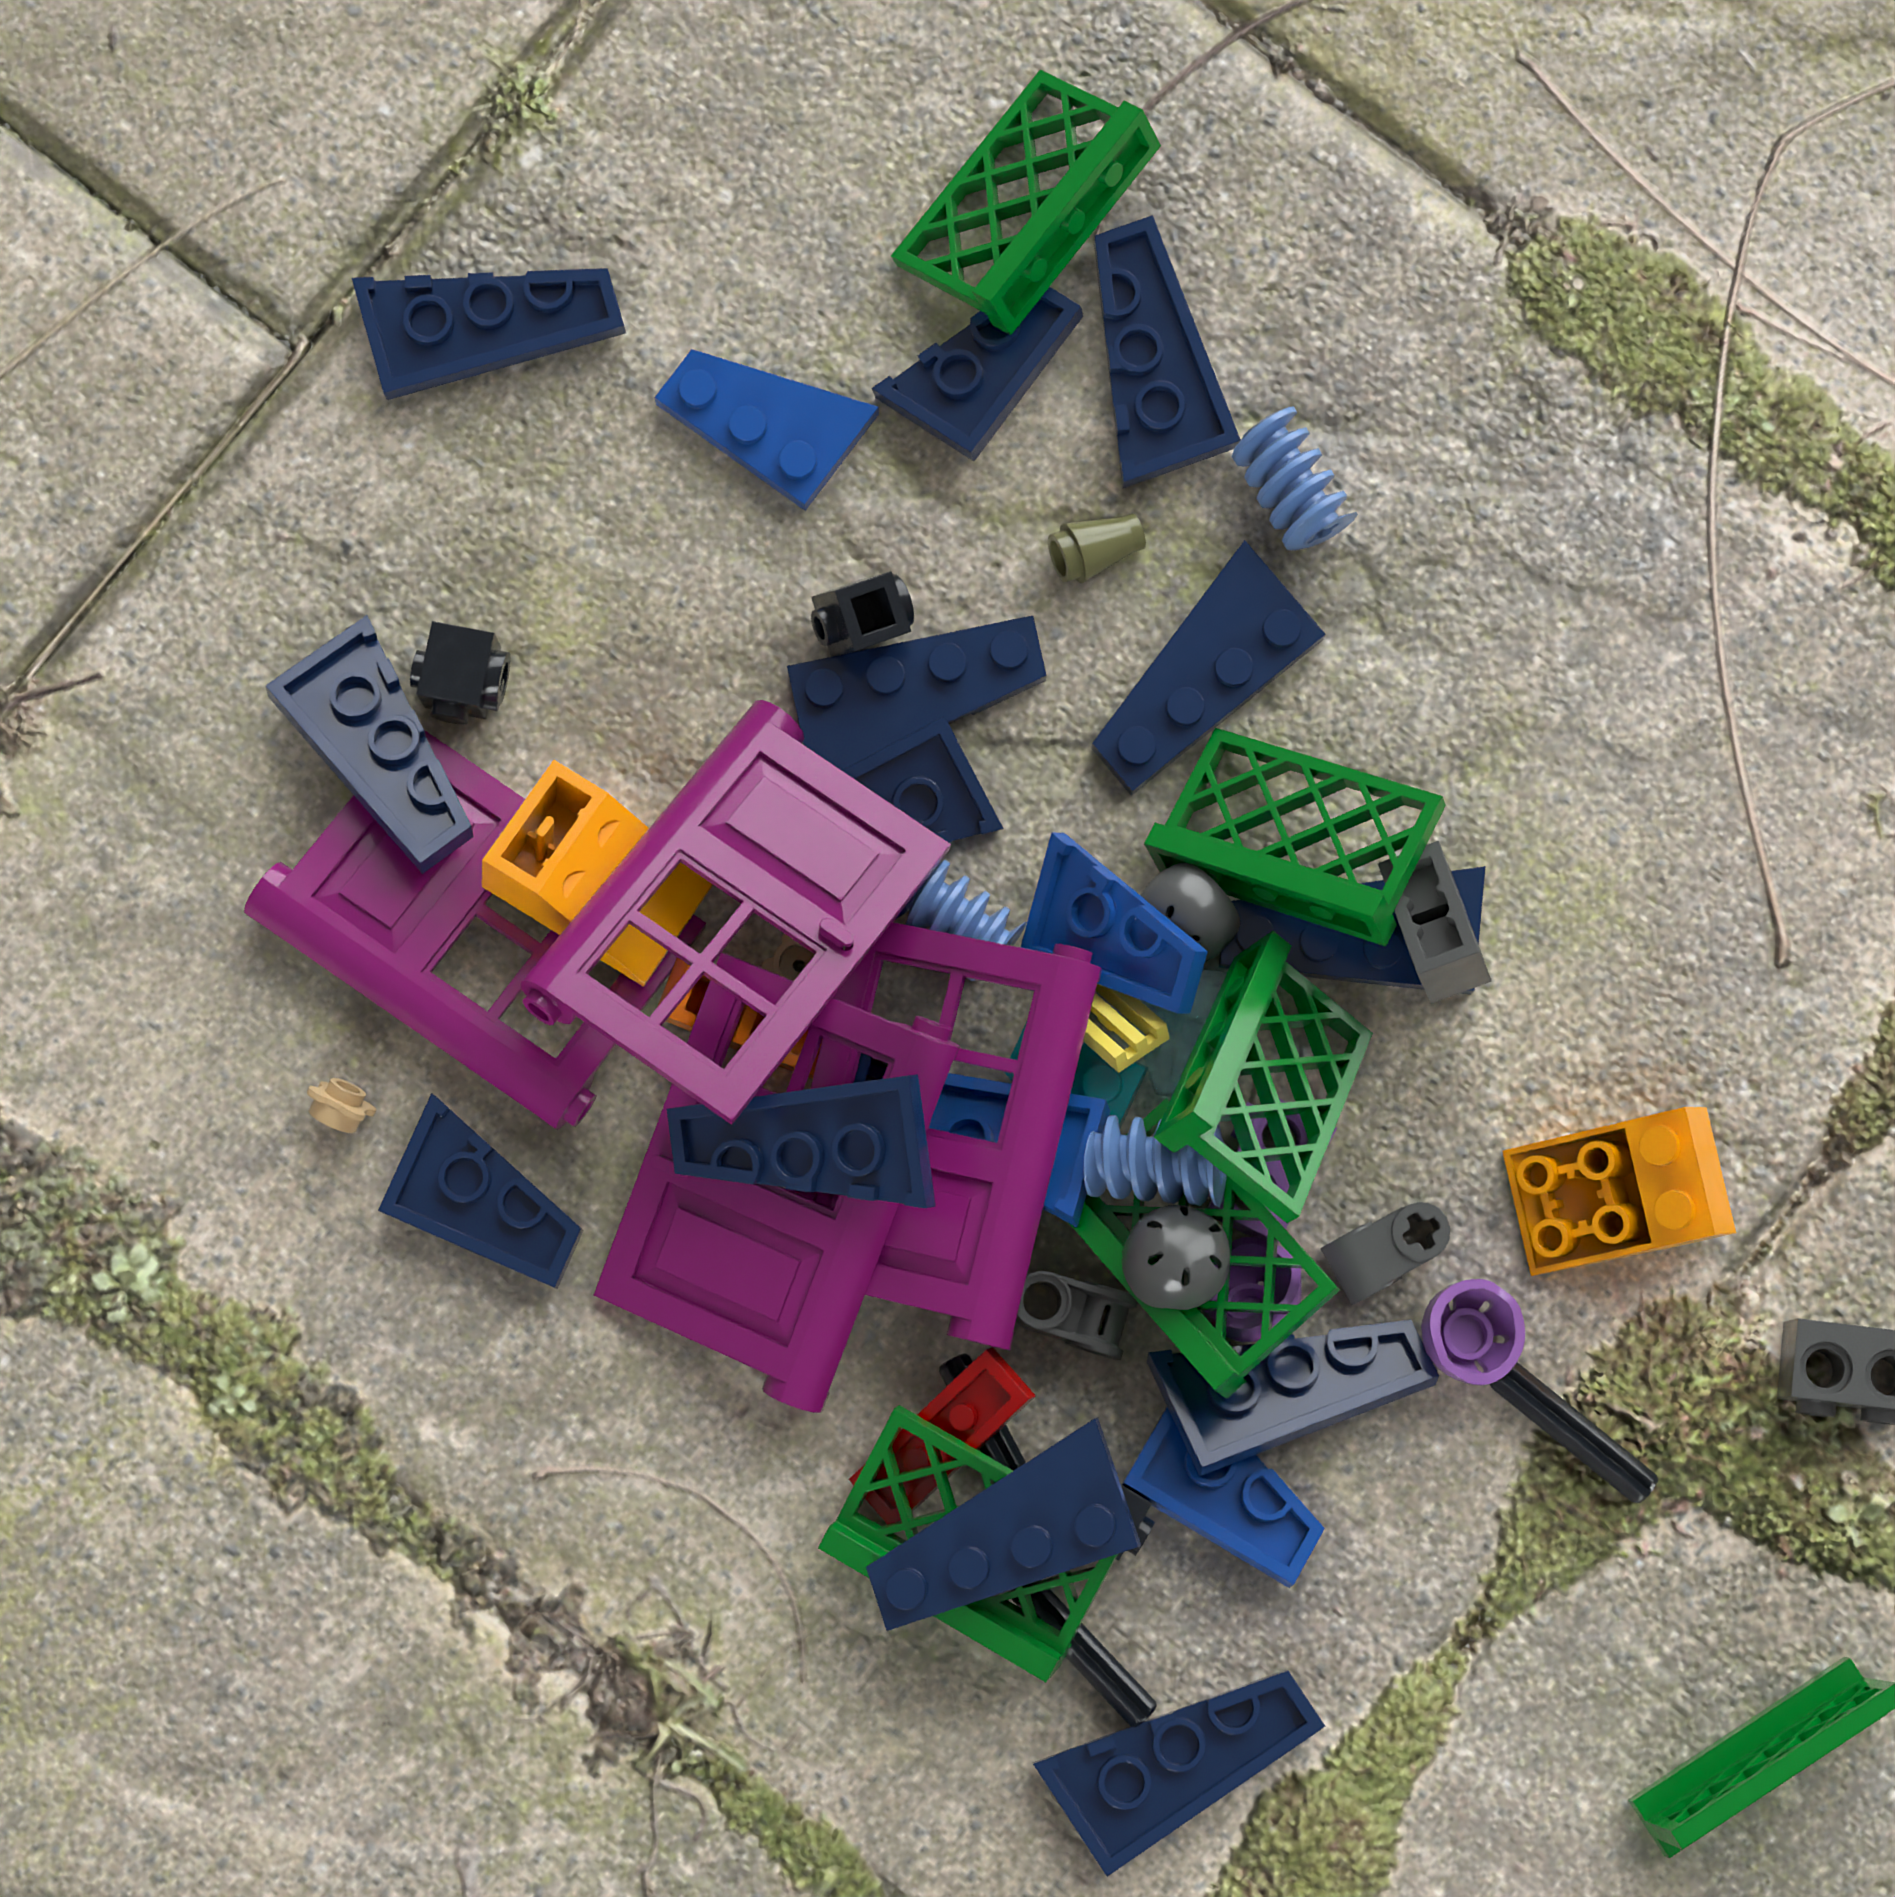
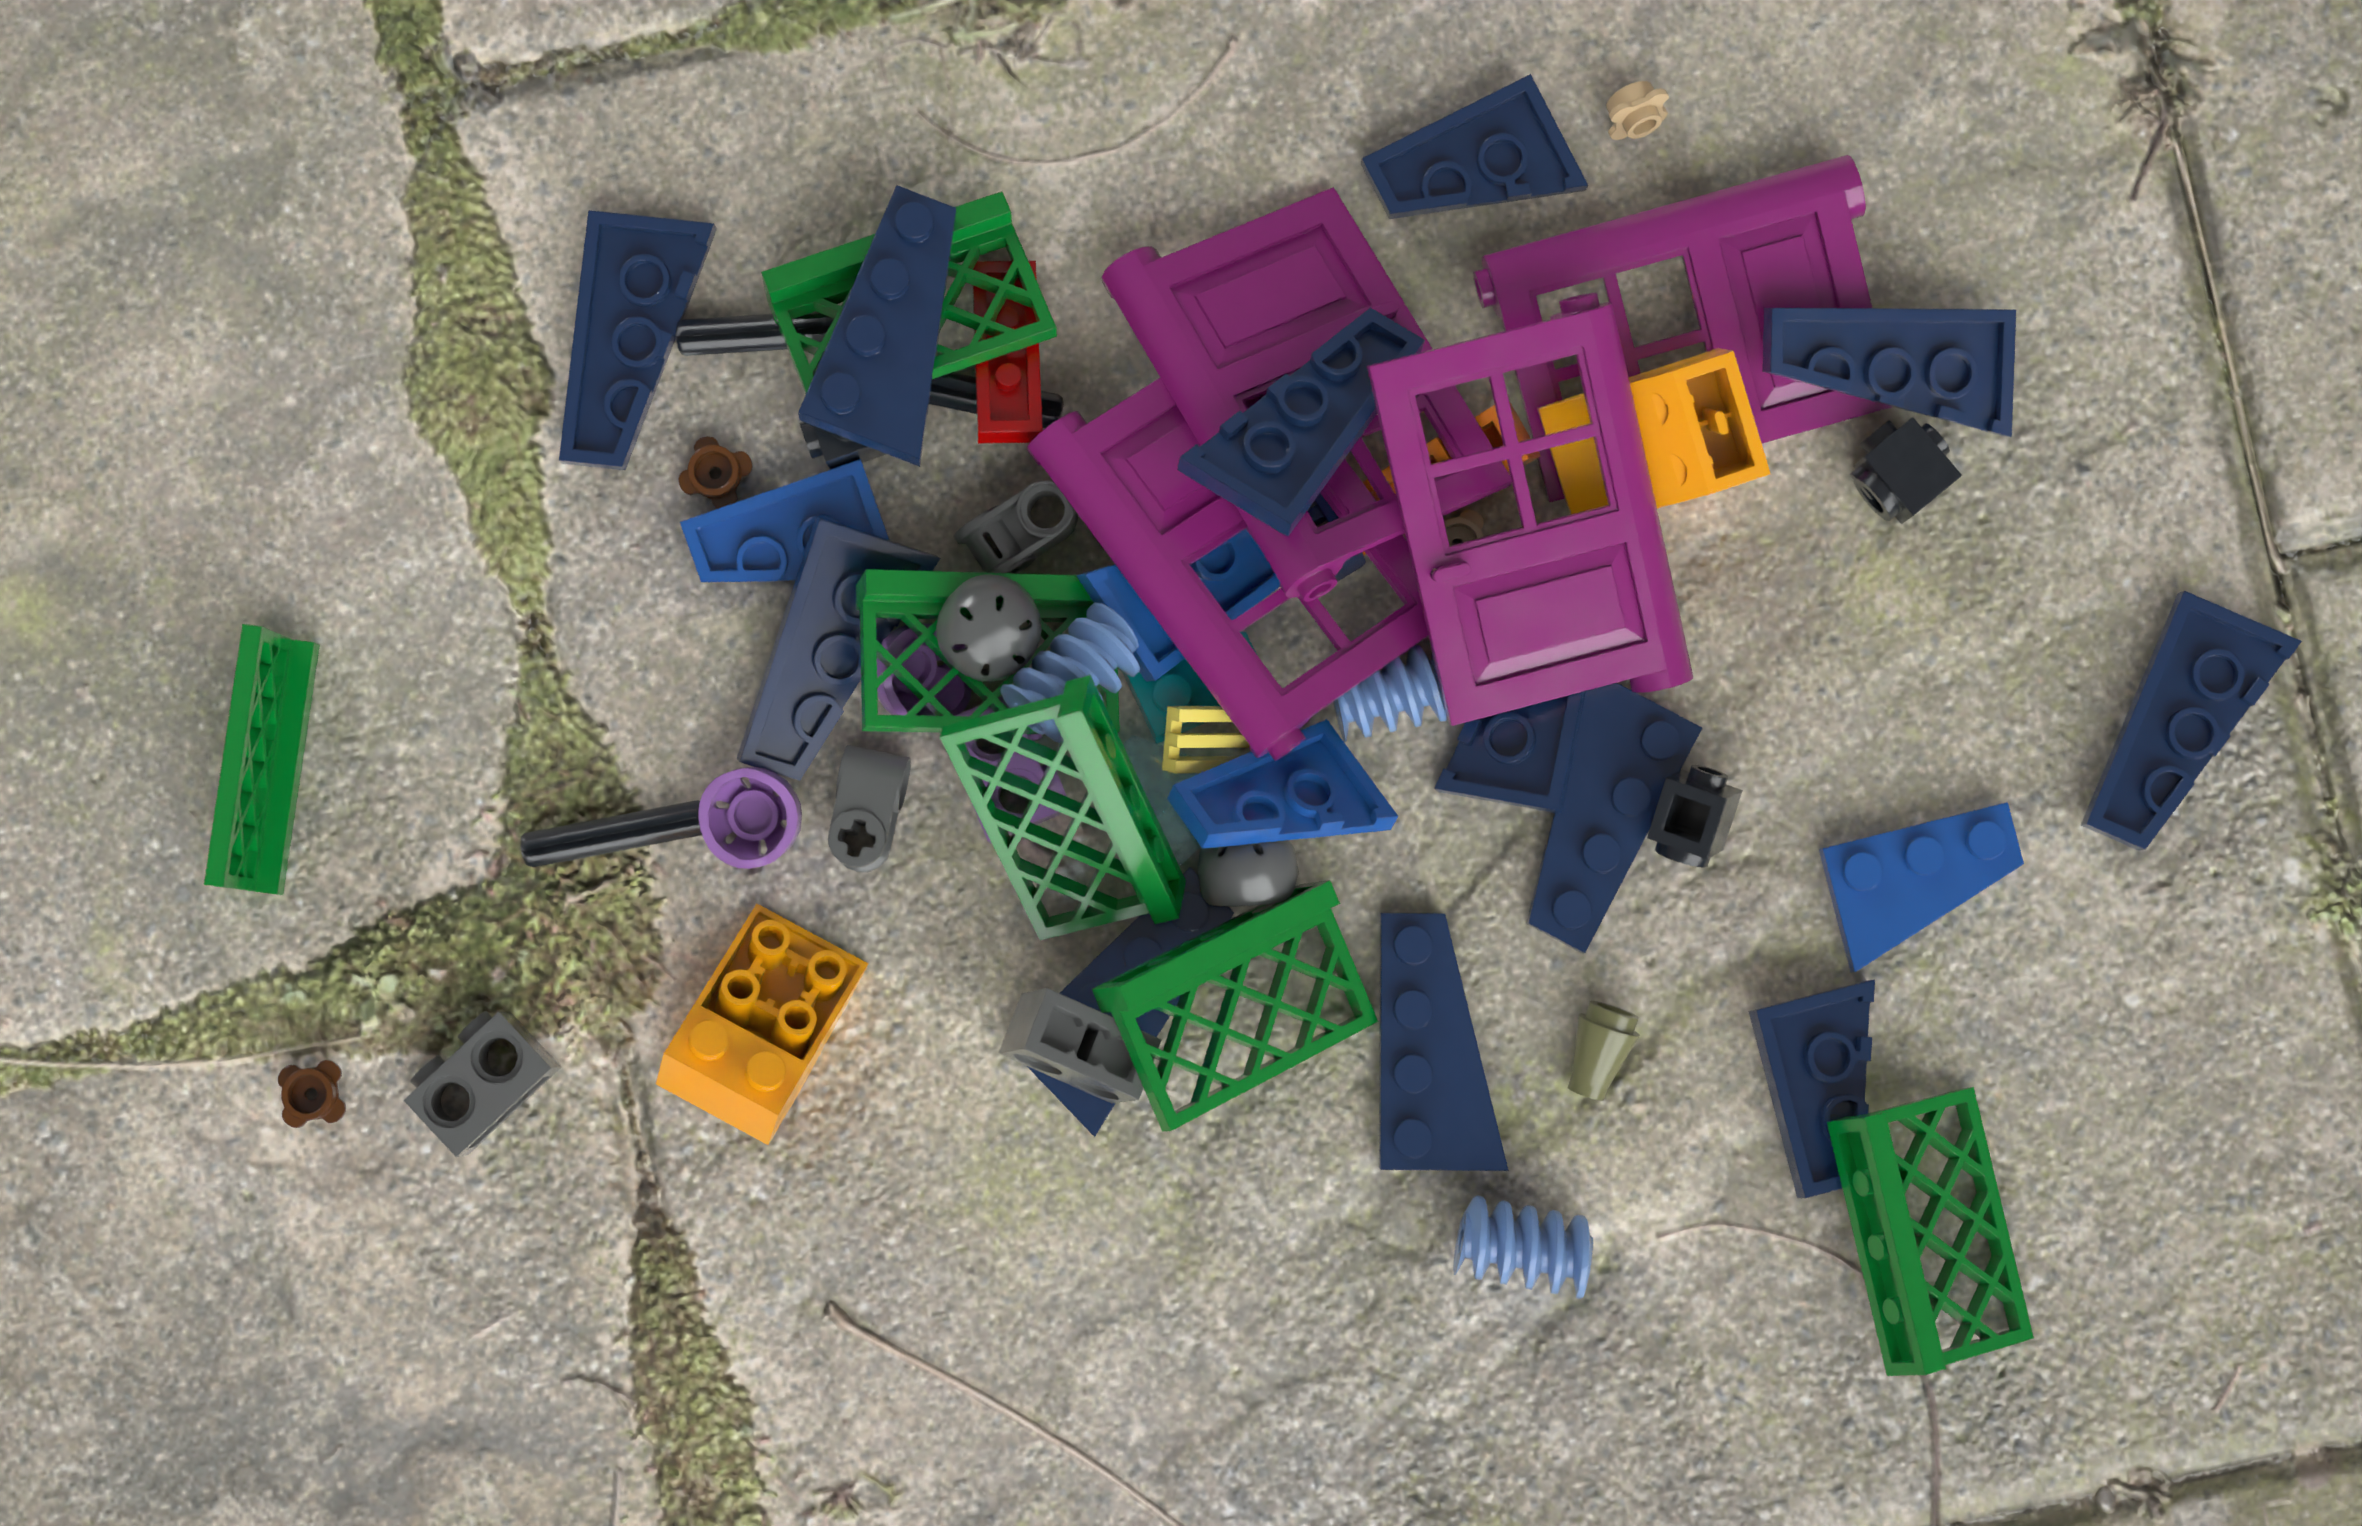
camera: 130 degrees right, 5 degrees up
(1158, 368) = (1699, 1218): dark blue wing -> none
(1244, 1603) = (706, 457): none -> reddish brown plate

